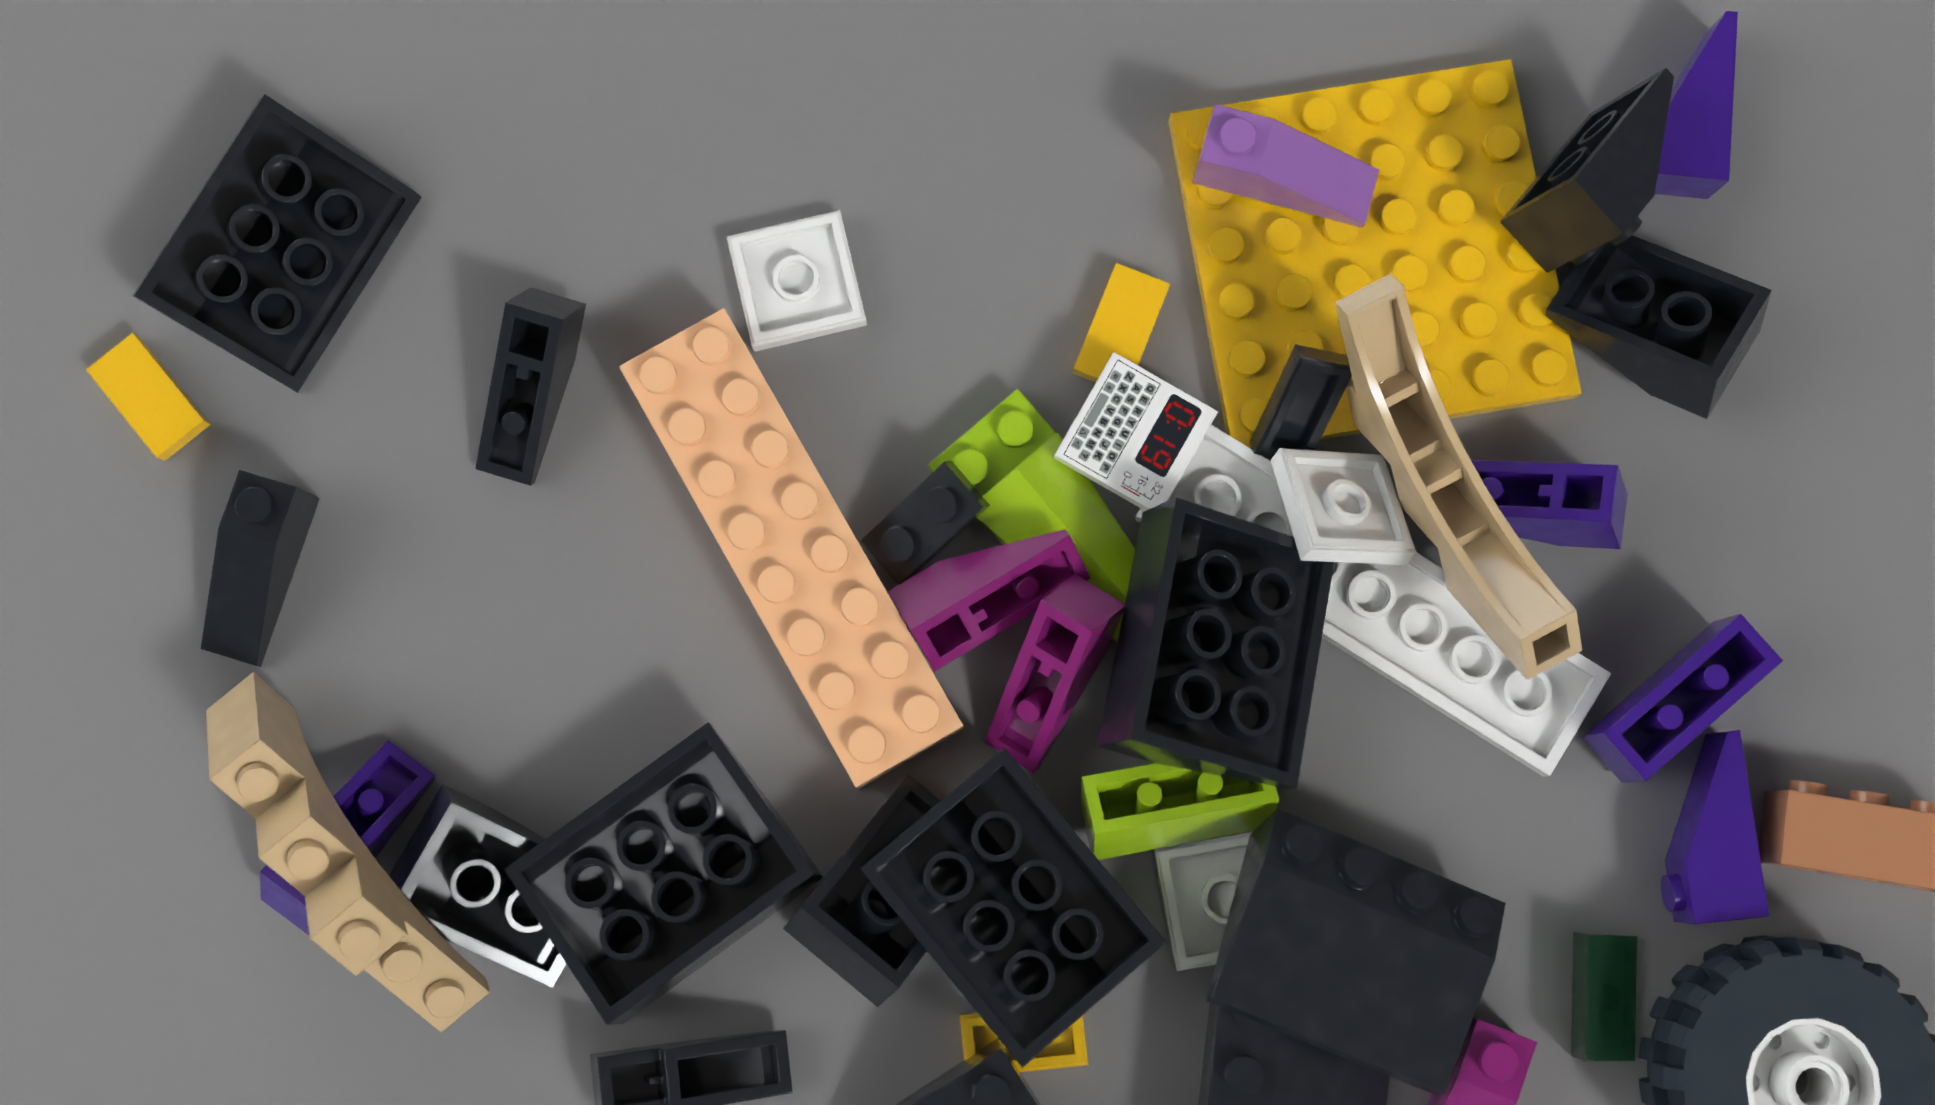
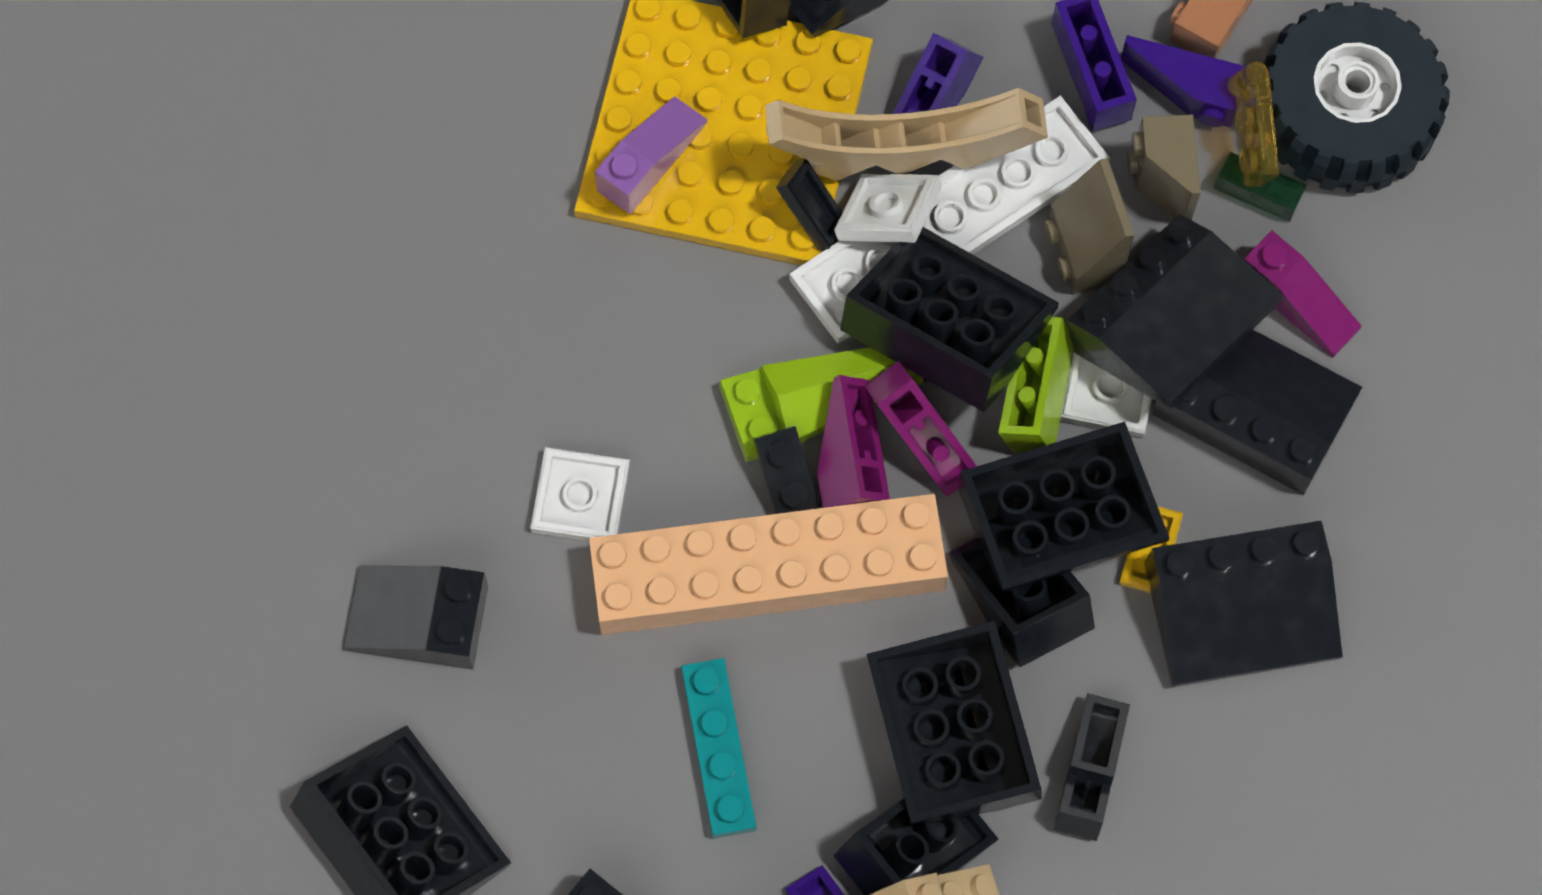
camera: 70 degrees left, 10 degrees down
(528, 382) = (578, 696): black slope -> none
(535, 585) = (718, 748): none -> teal plate
(560, 152) = (418, 614): none -> black slope
(1121, 321) = (706, 301): yellow tile -> none
(1135, 434) = (786, 315): tile -> none
(1426, 789) = (1090, 229): none -> dark tan slope
(1573, 858) = (1166, 163): none -> dark tan slope
(1685, 960) = (1255, 123): none -> clear yellow plate

